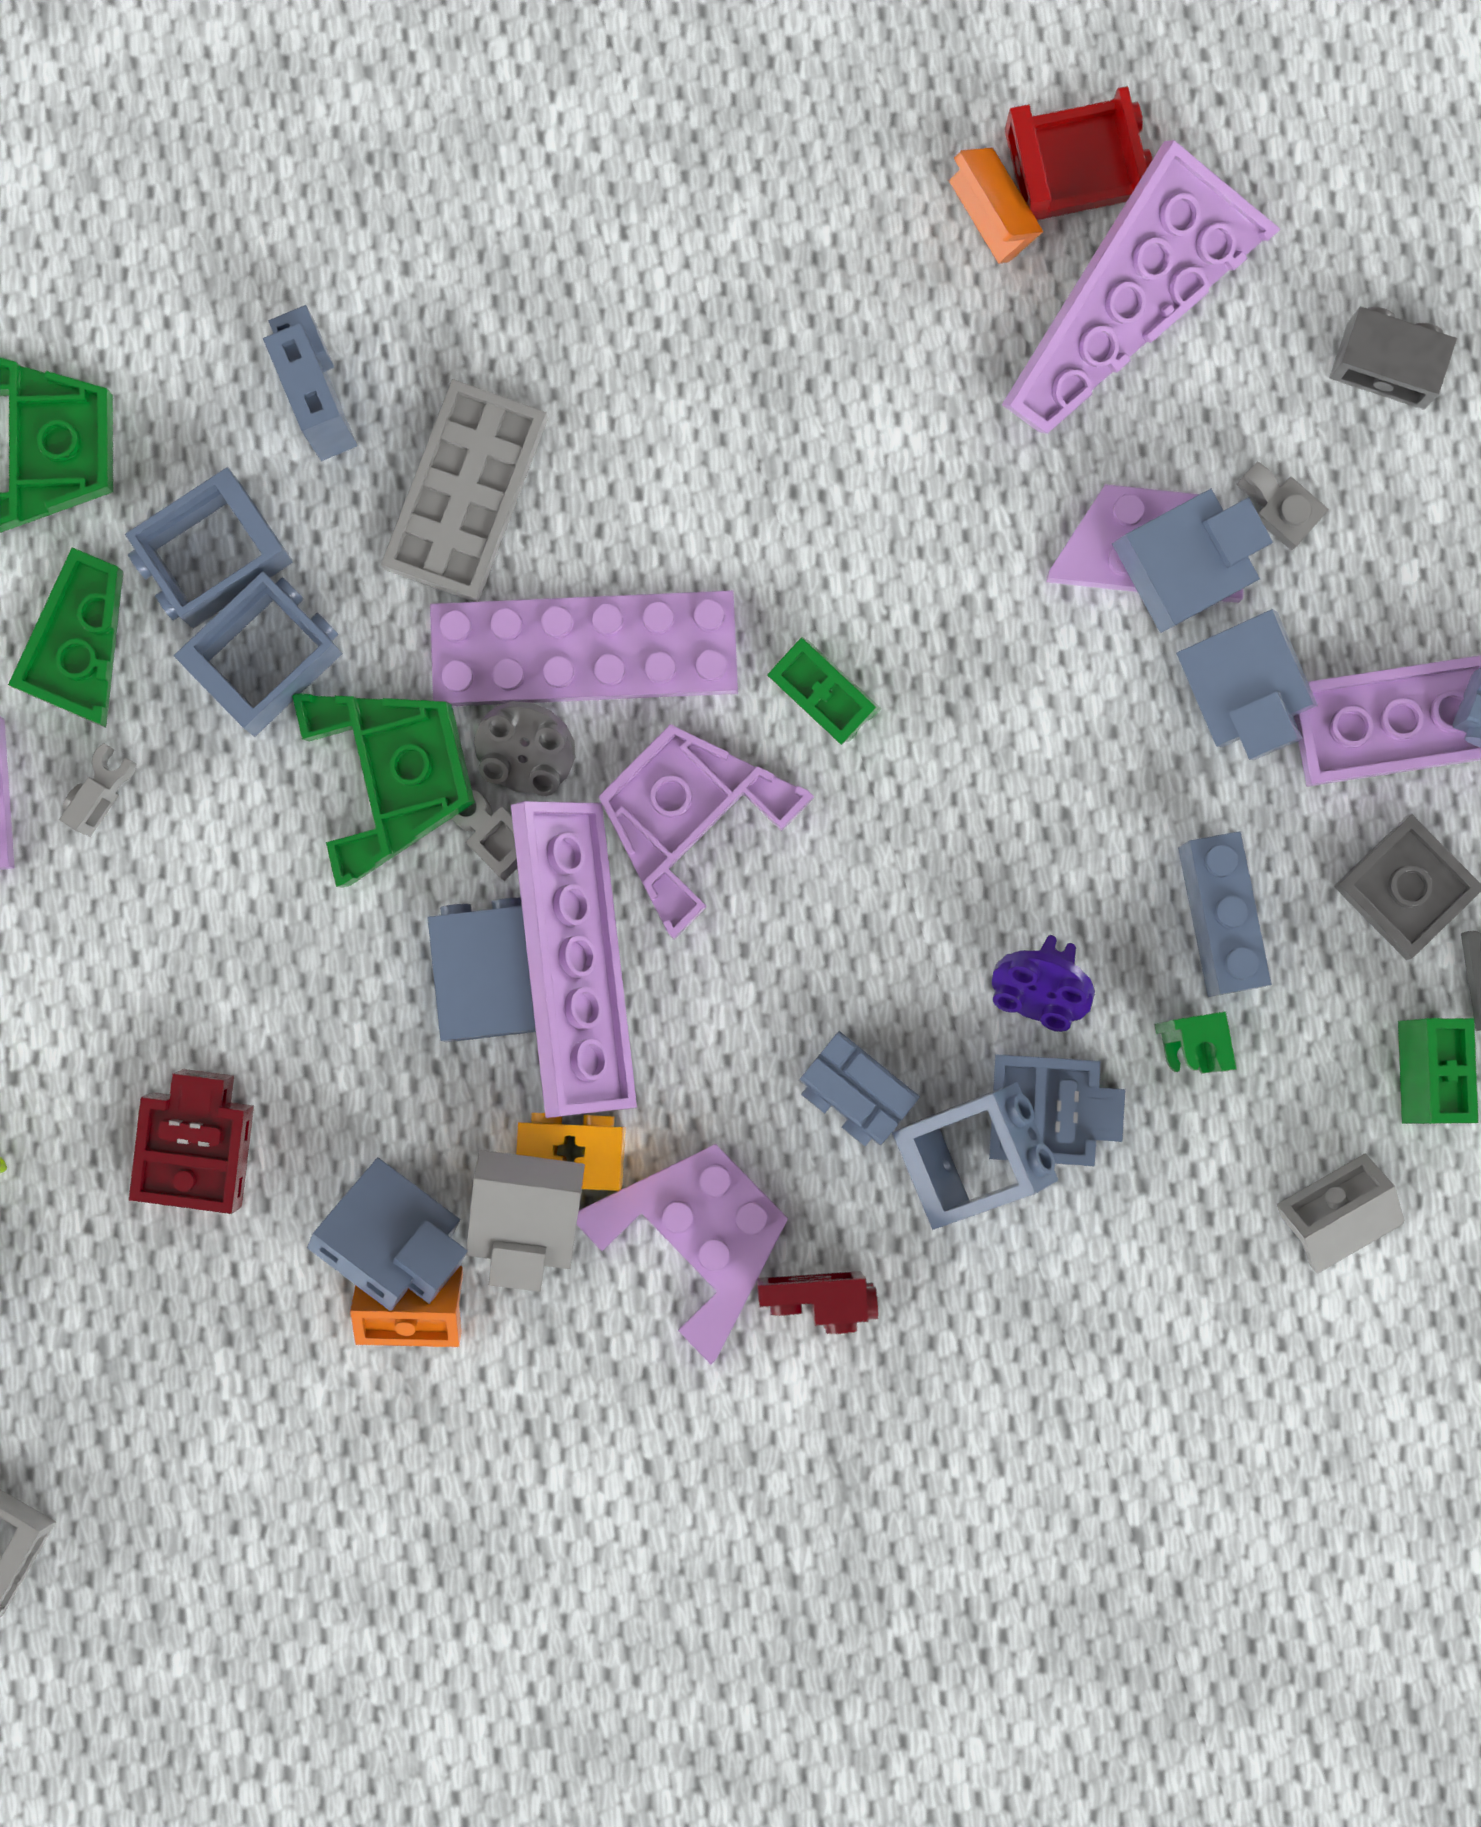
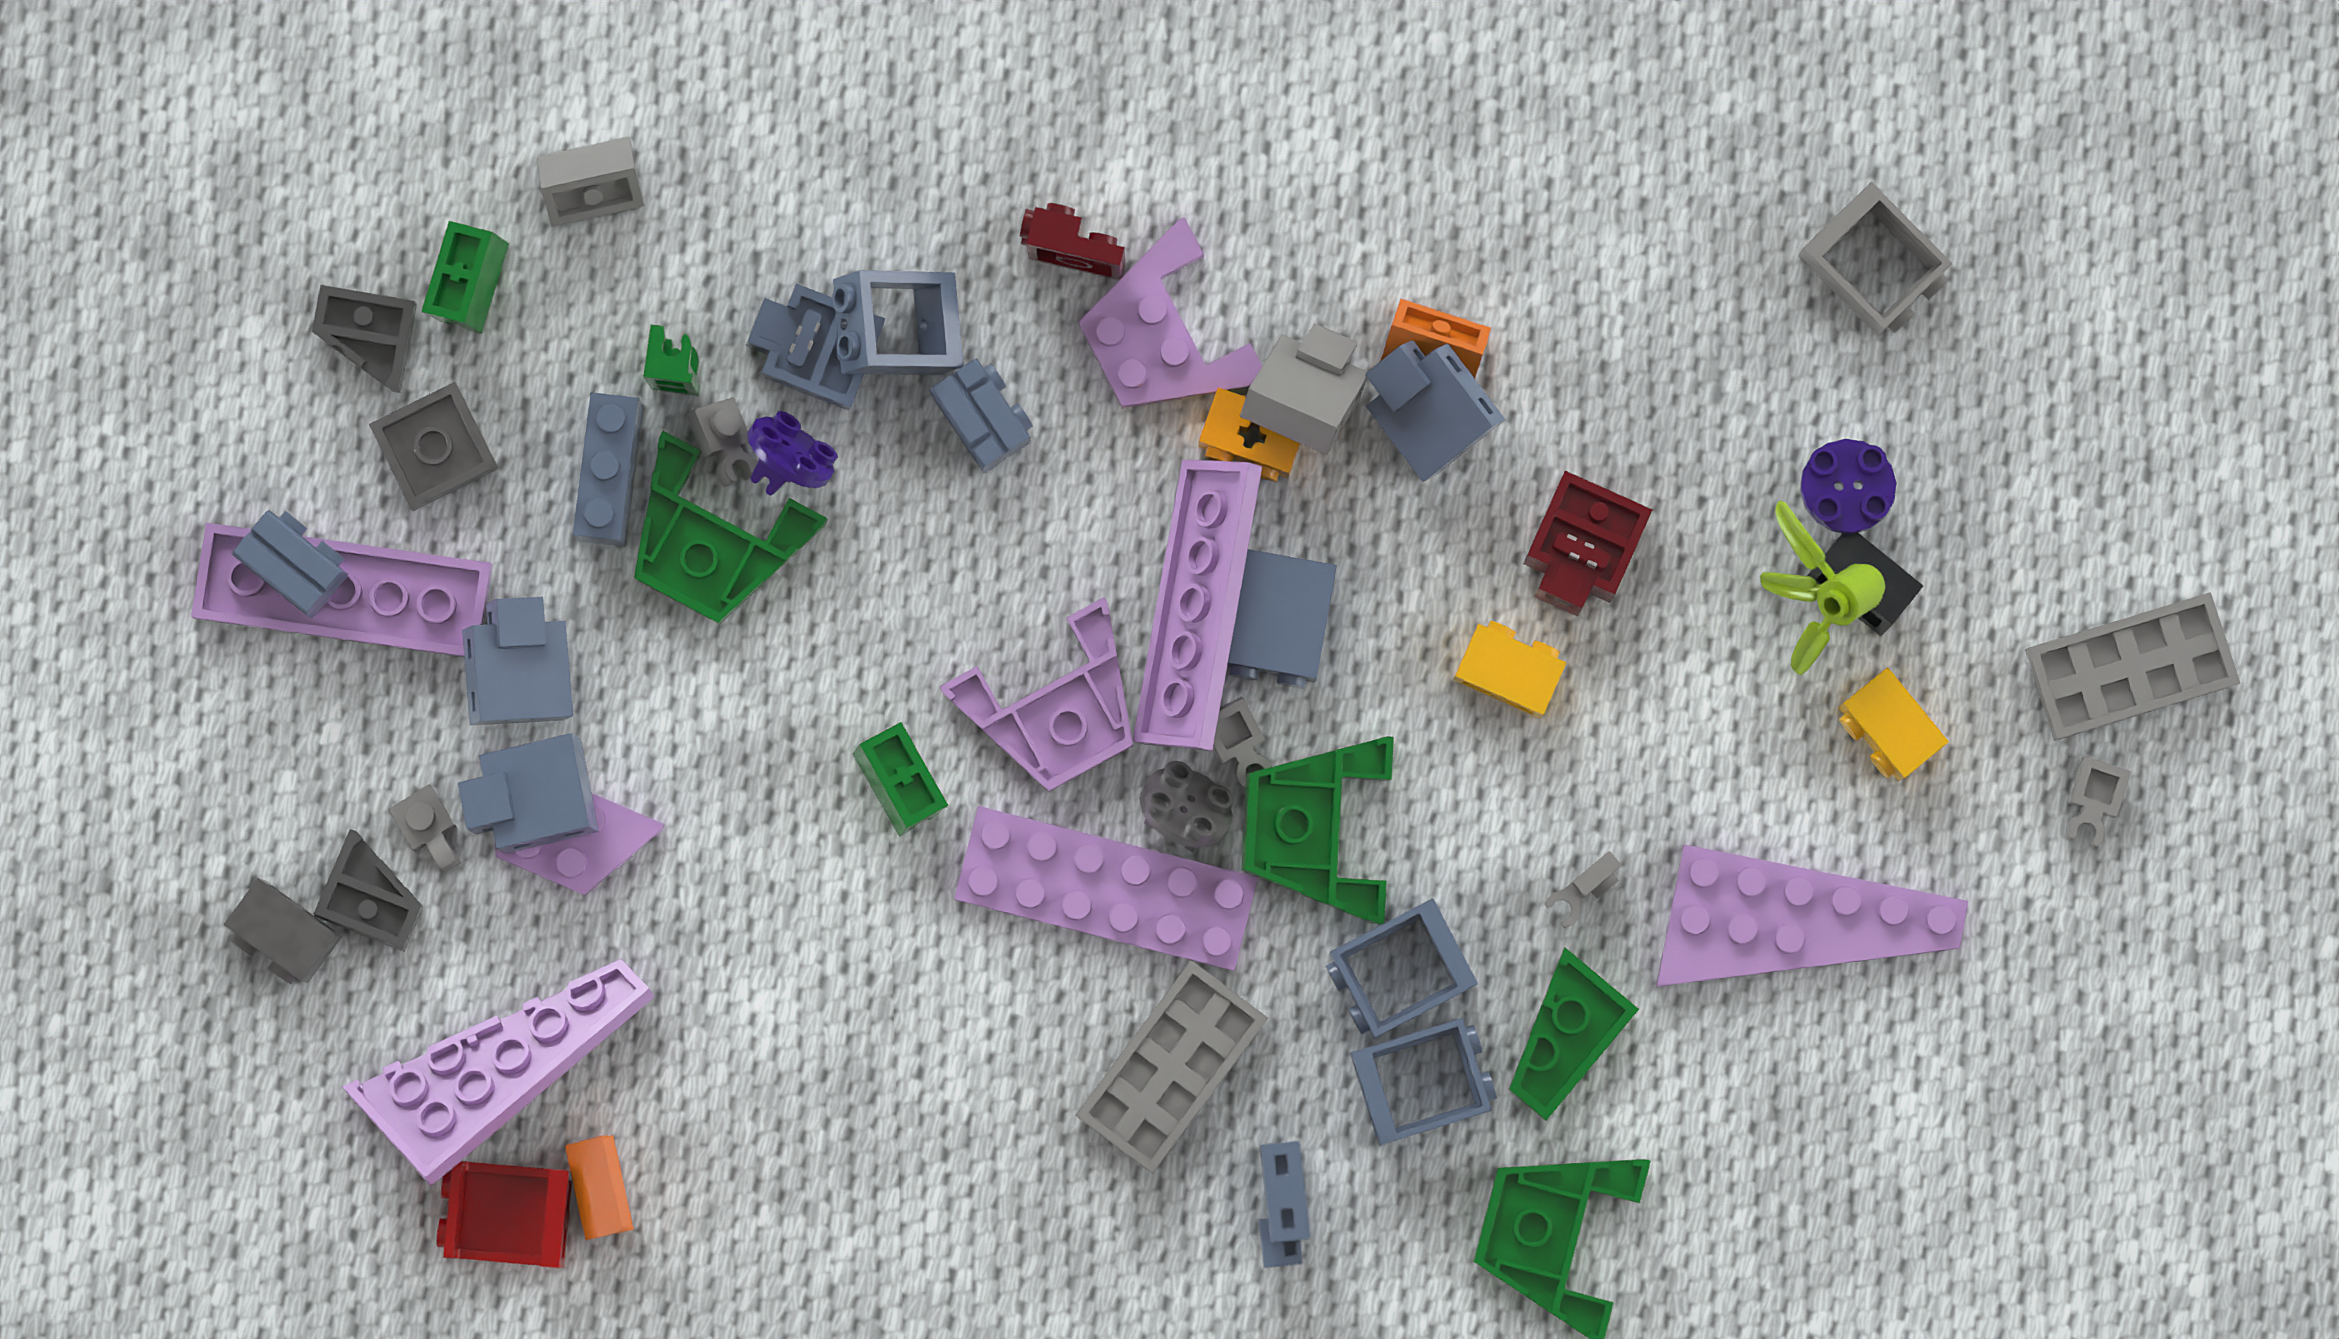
camera: 165 degrees left, 0 degrees up
(233, 989) = (1510, 669): none -> yellow brick
(1098, 857) = (701, 556): none -> green wing
(1120, 989) = (723, 433): none -> light grey plate
(1318, 418) = (368, 897): none -> dark grey wing

